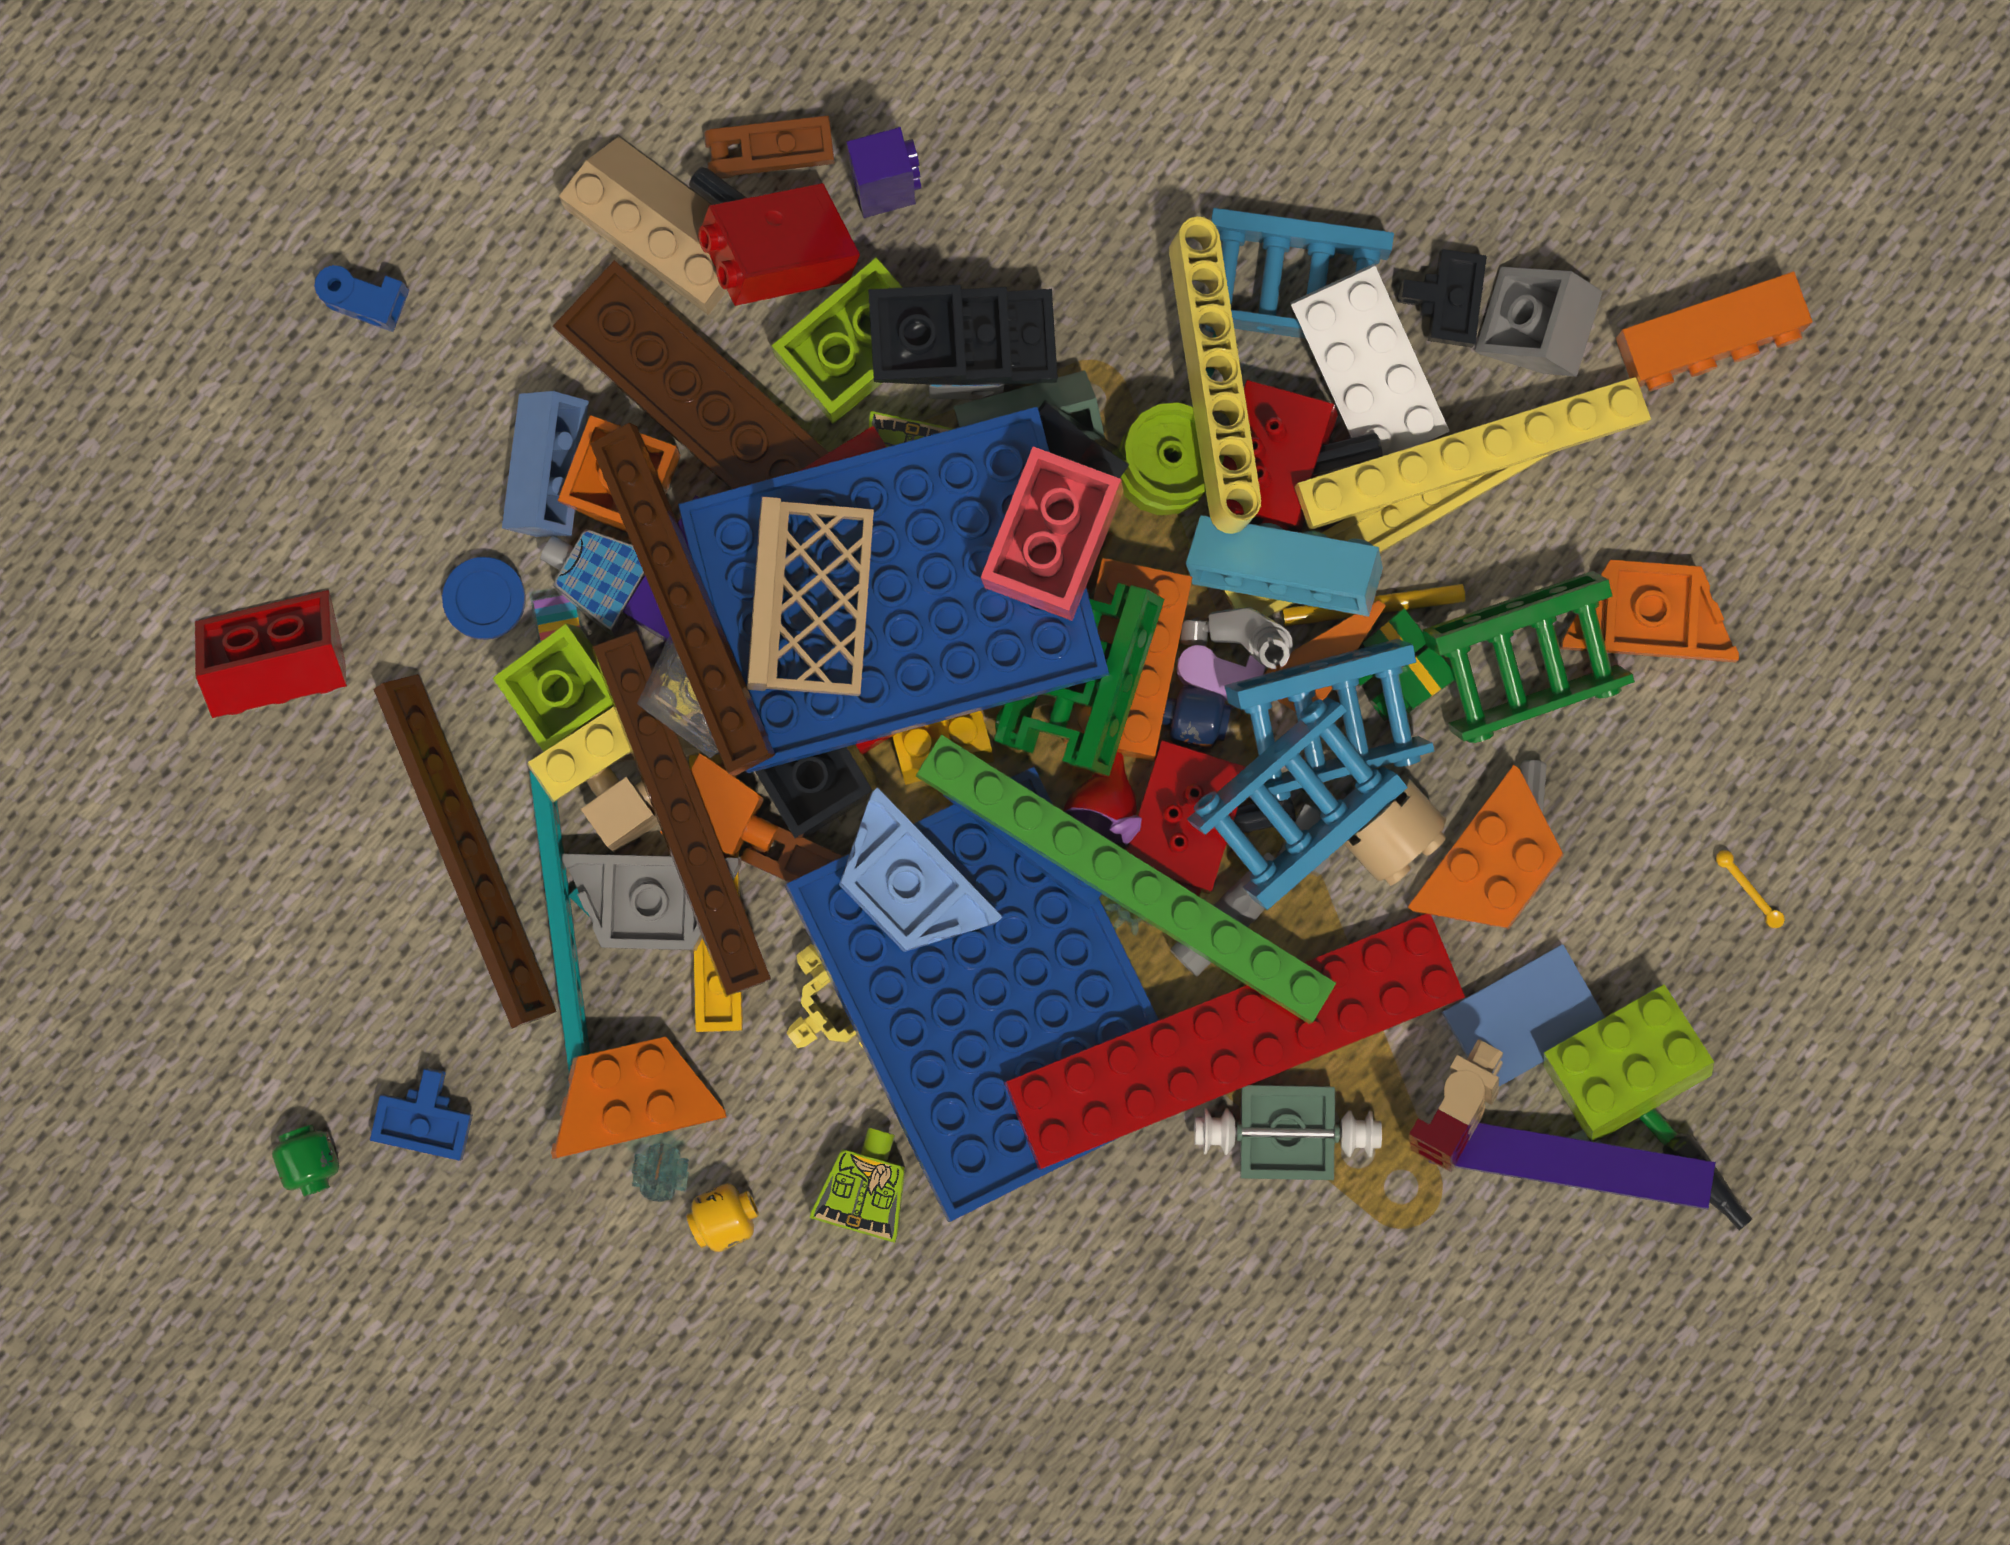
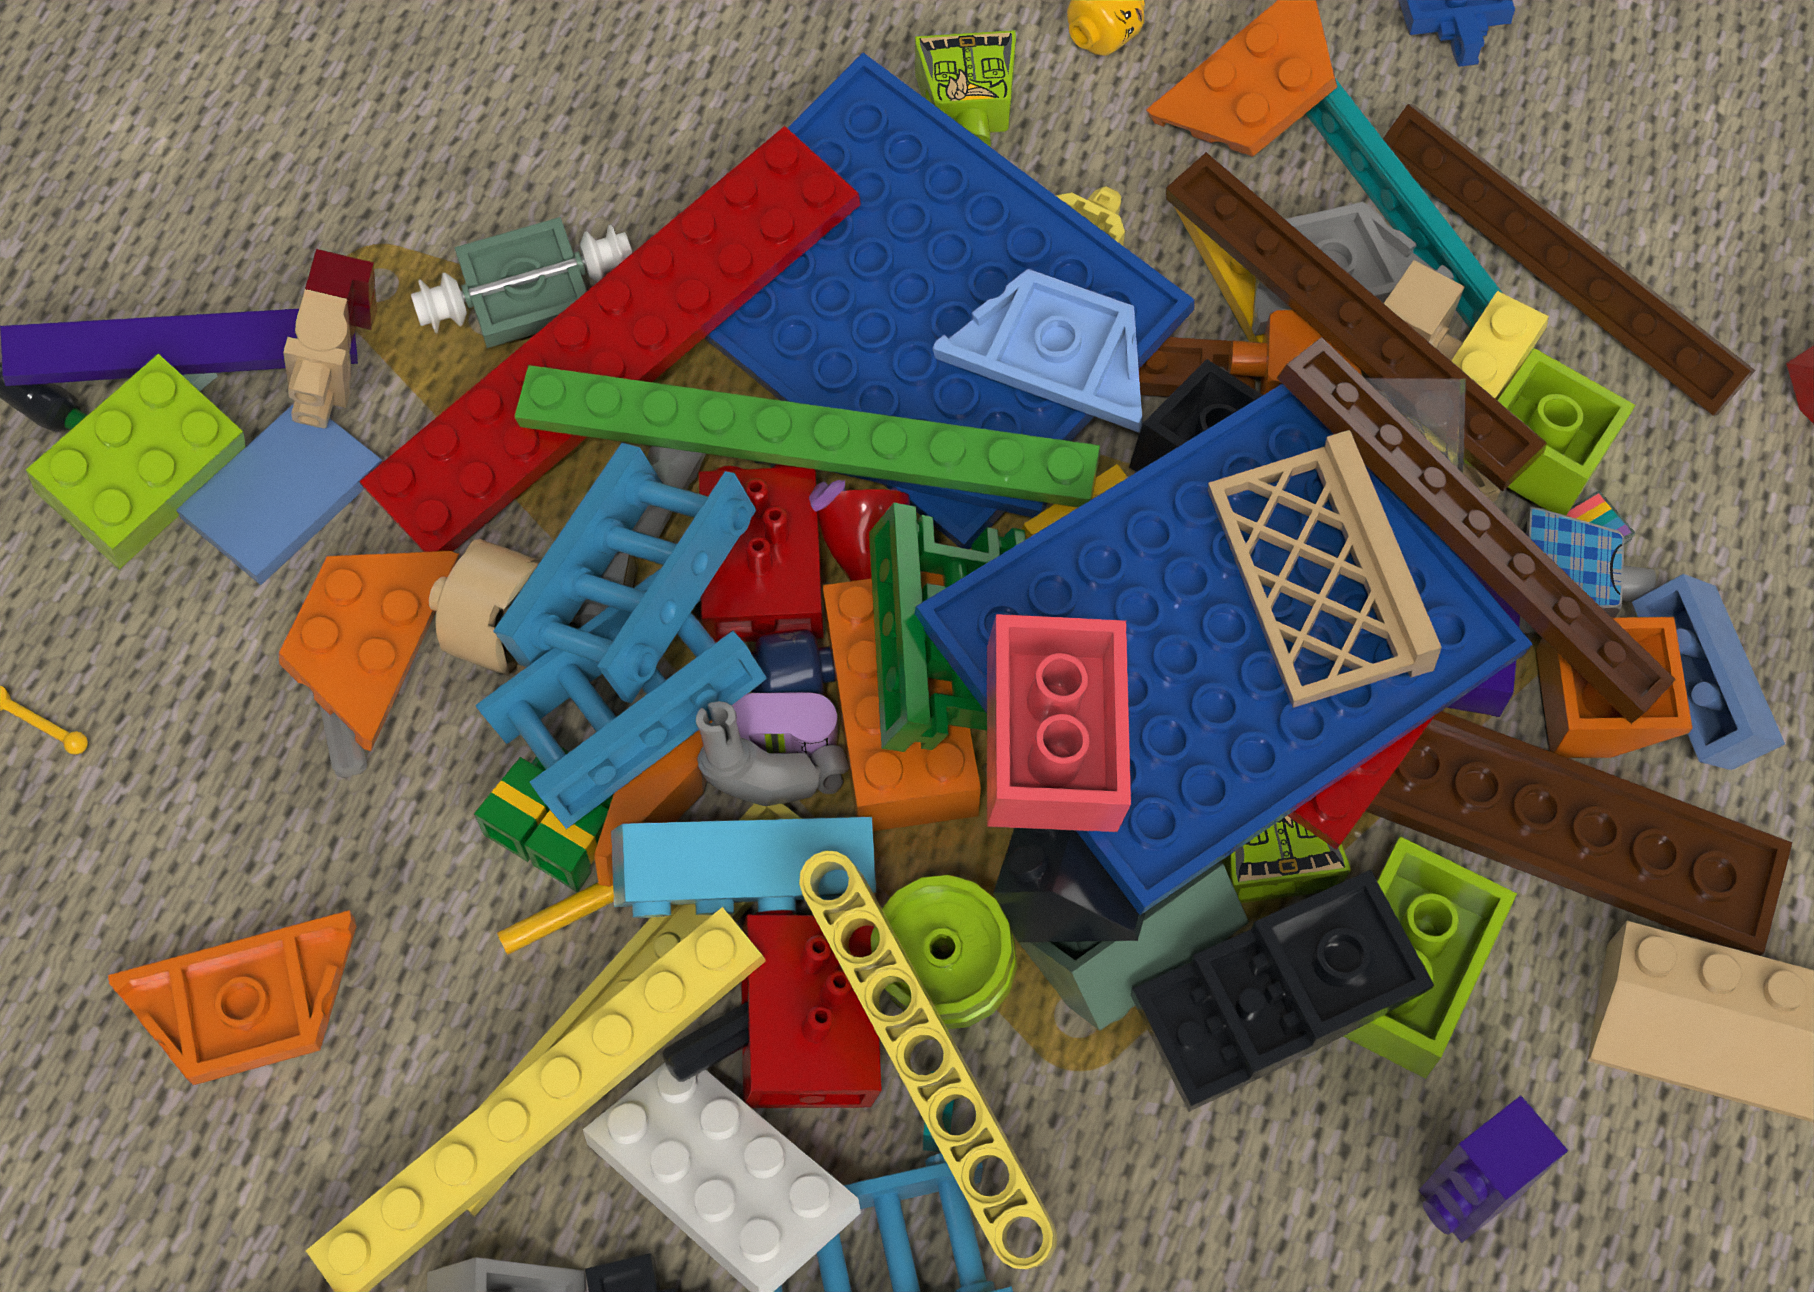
camera: 160 degrees right, 20 degrees down
(483, 598) = (1688, 517): blue piece -> none
(660, 1172) = (1190, 34): clear light blue gear -> none
(771, 146) = (1644, 1186): dark orange plate -> none
(773, 240) = (1586, 1030): red piece -> none
(1497, 625) = (413, 906): green fence -> none

